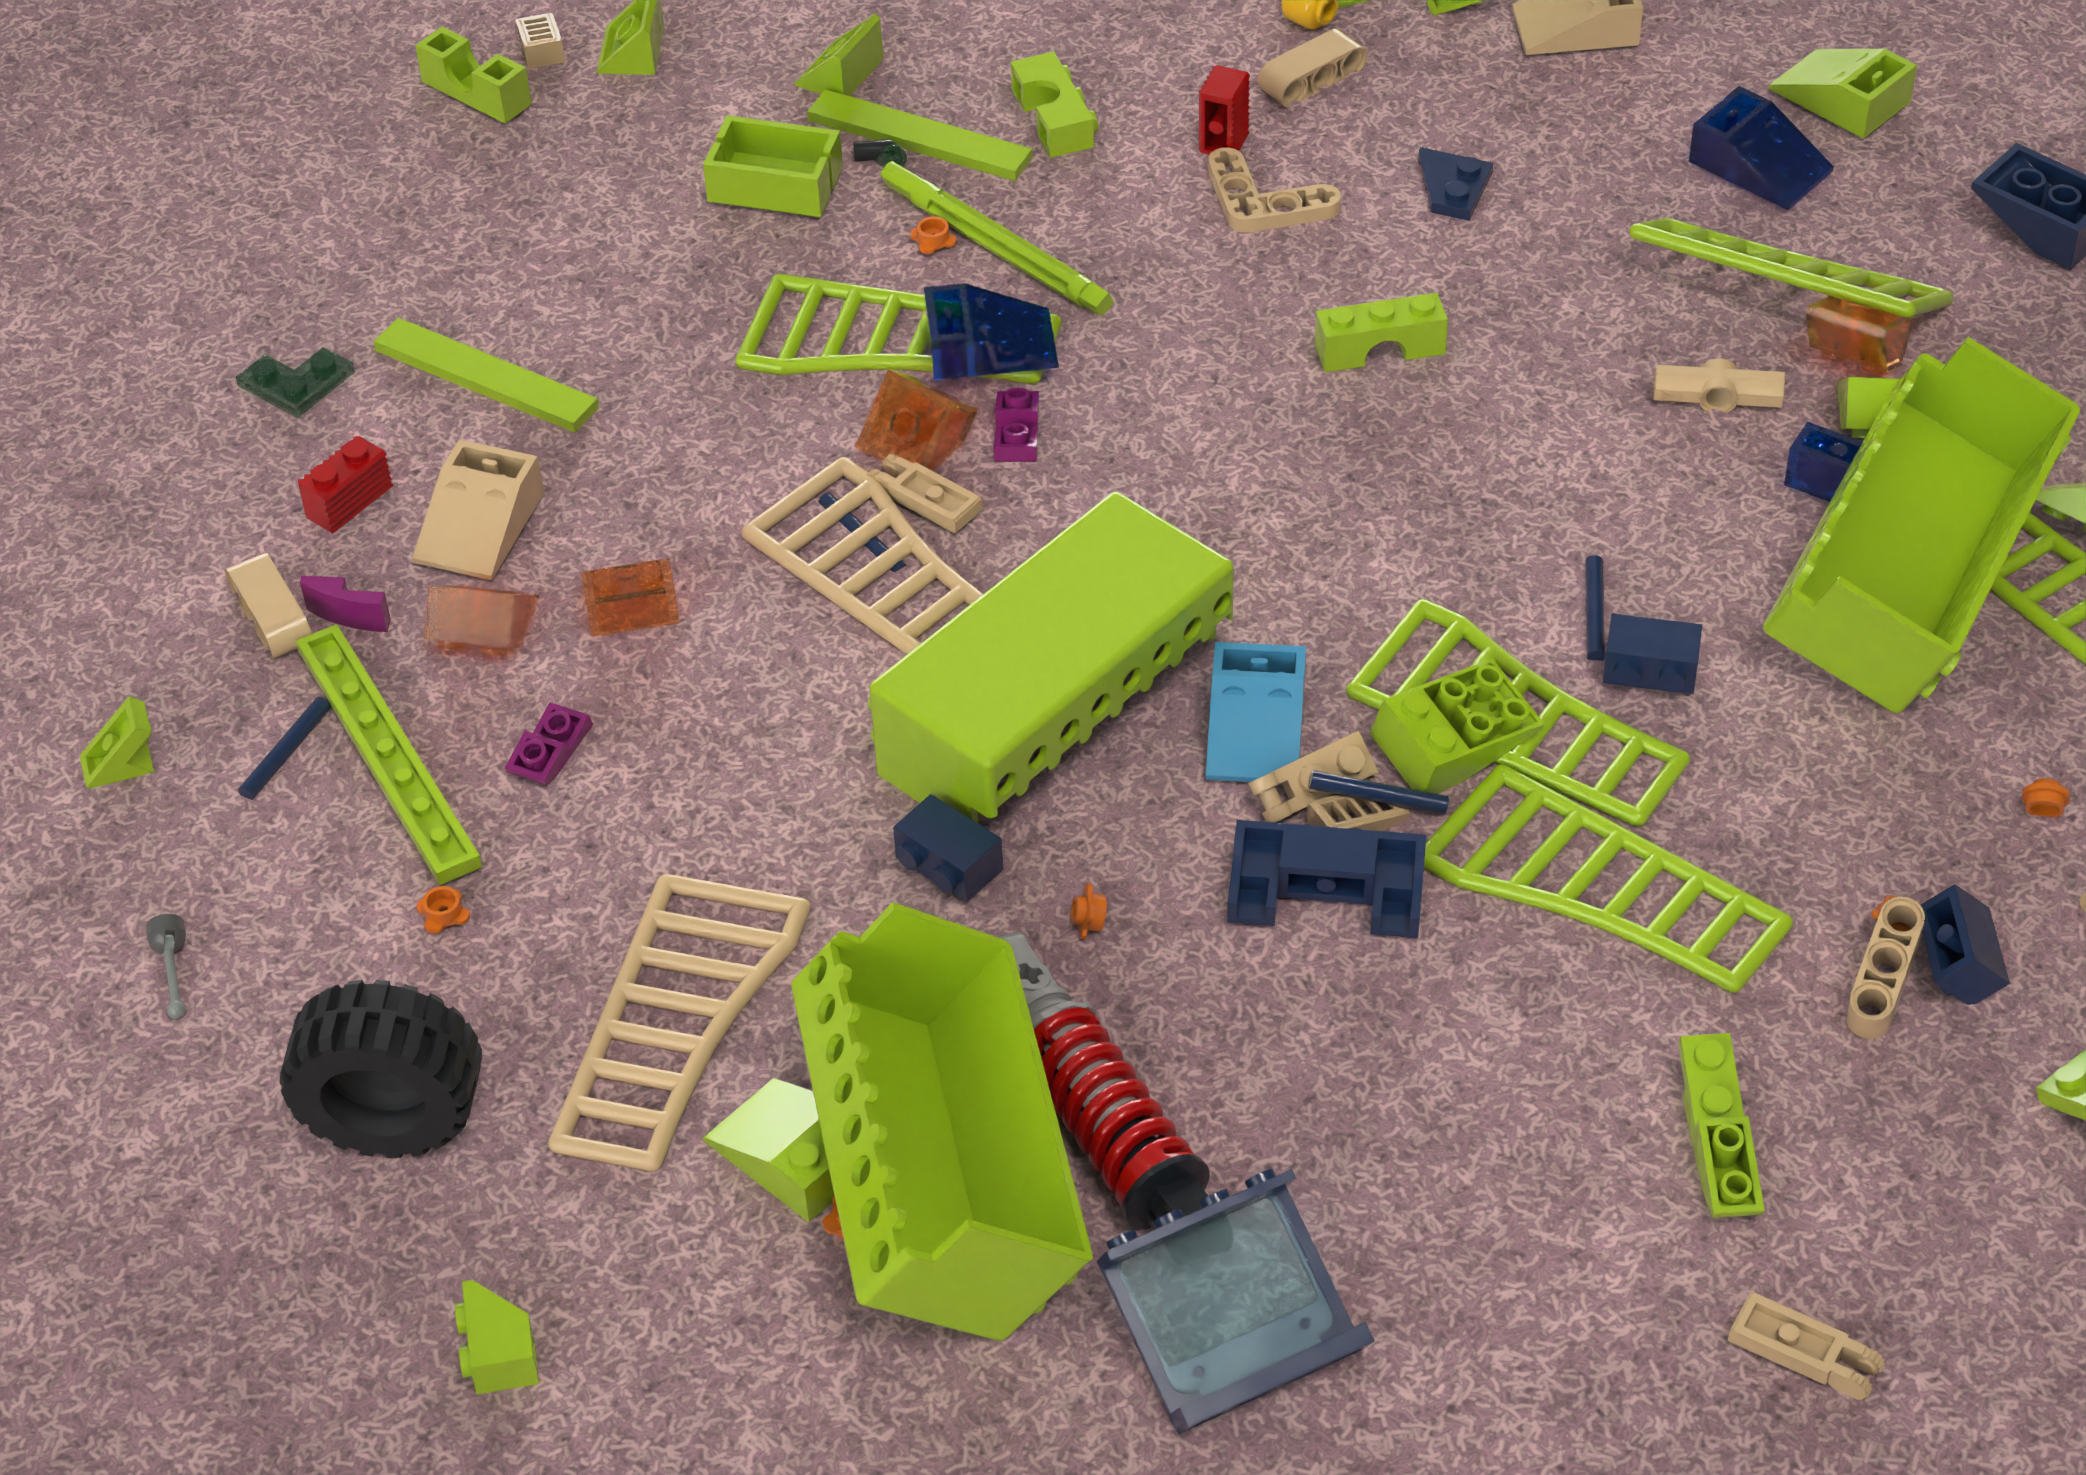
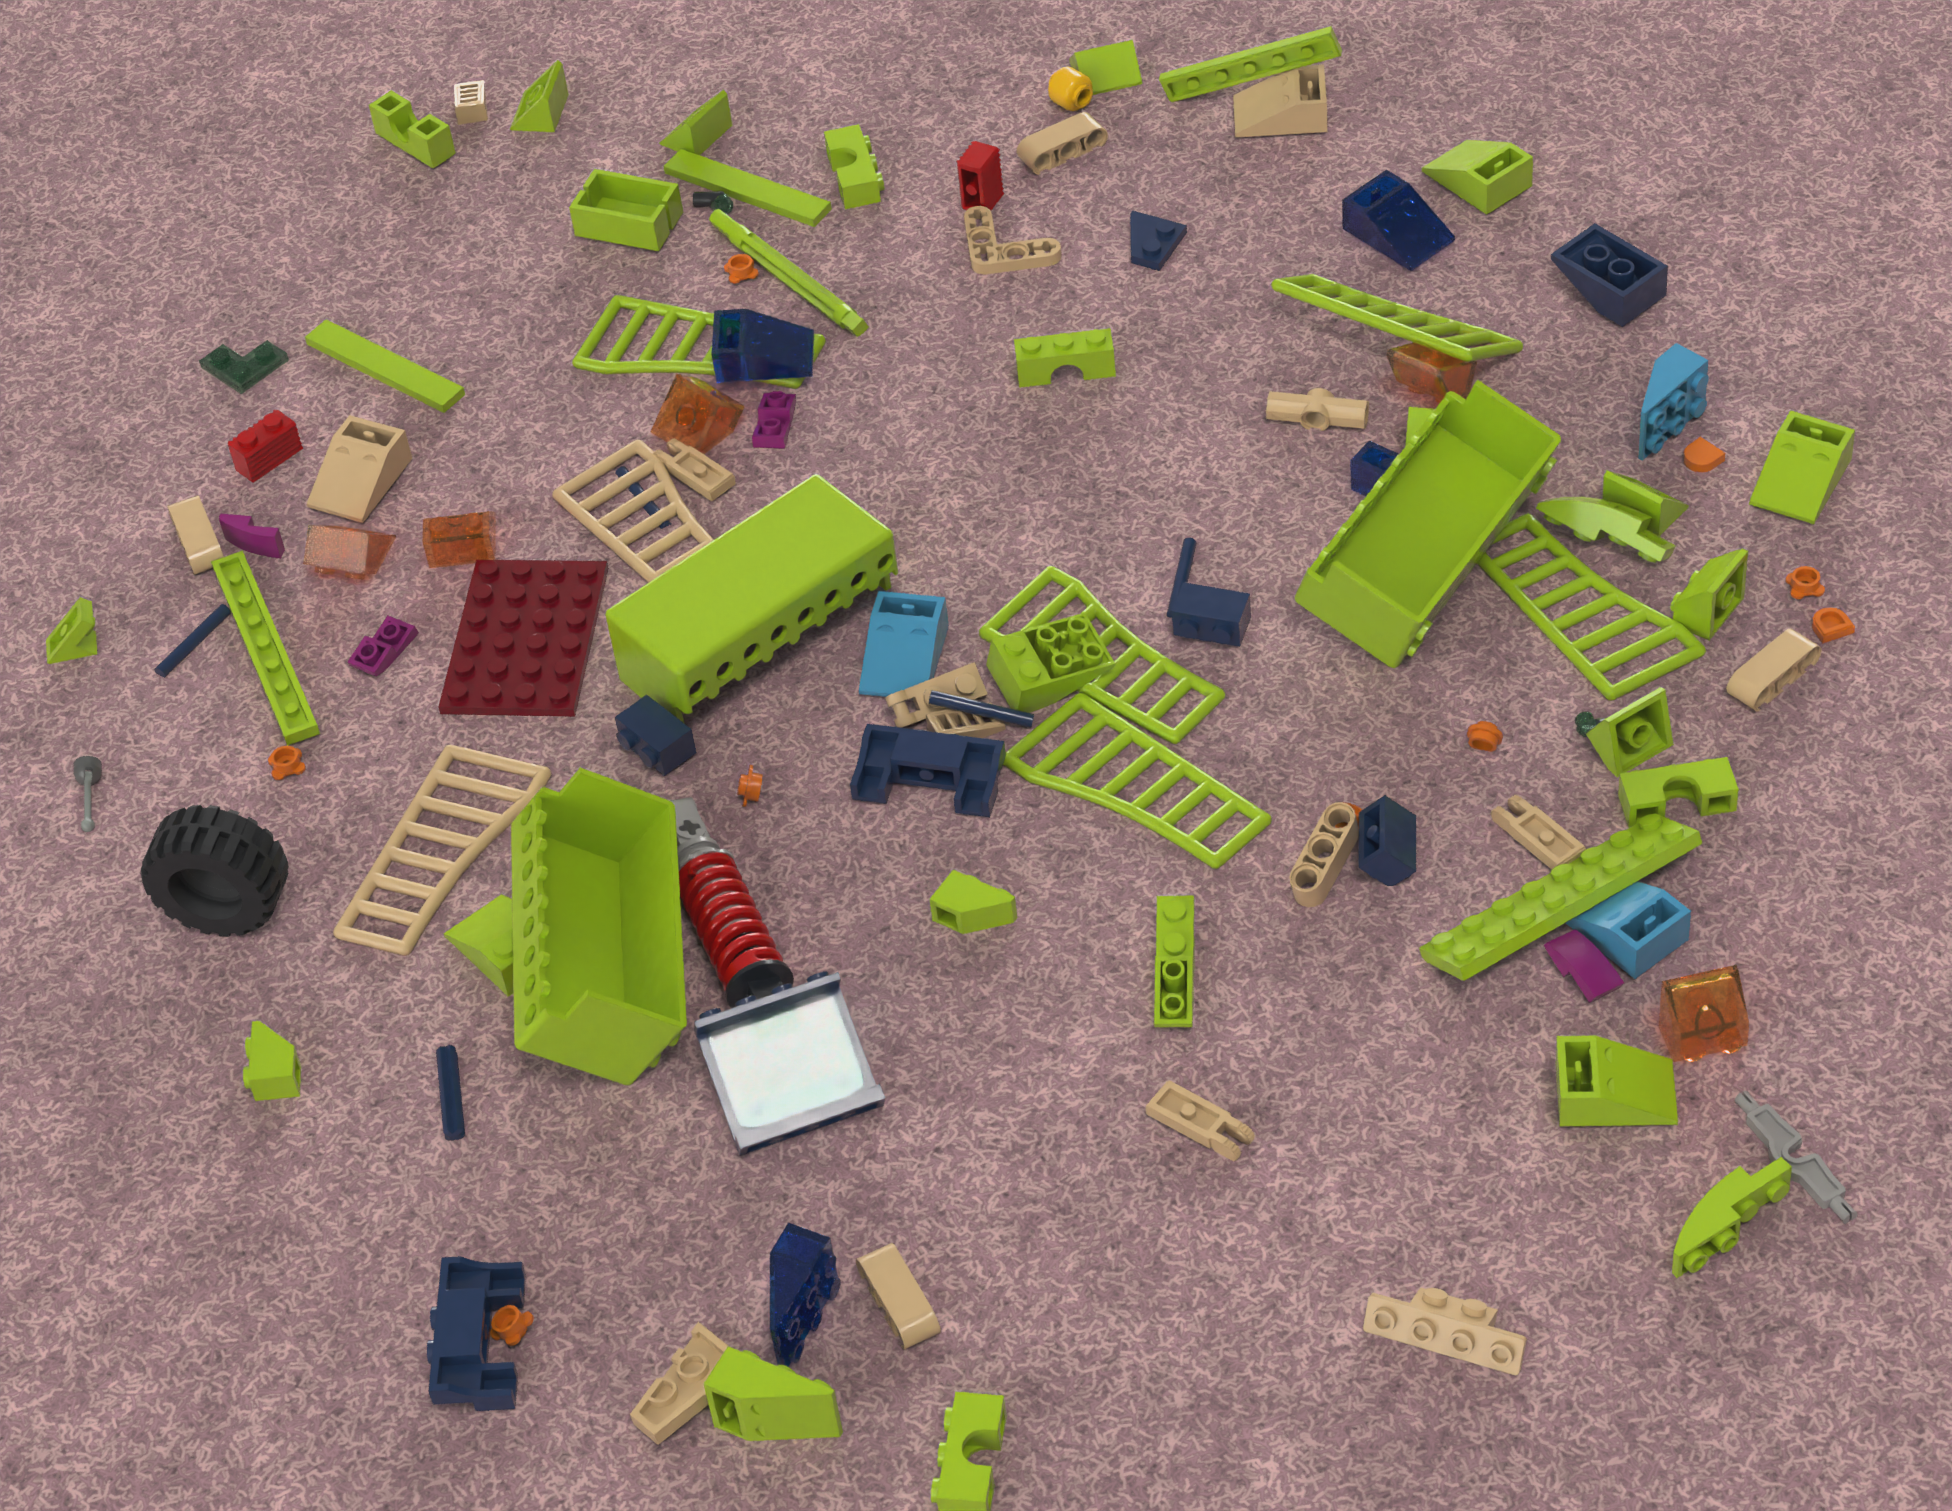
camera: 10 degrees right, 0 degrees up
(739, 725) = (524, 638): none -> dark red plate
(755, 1367) = (450, 1093): none -> dark blue axle
(1426, 1060) = (971, 905): none -> lime slope

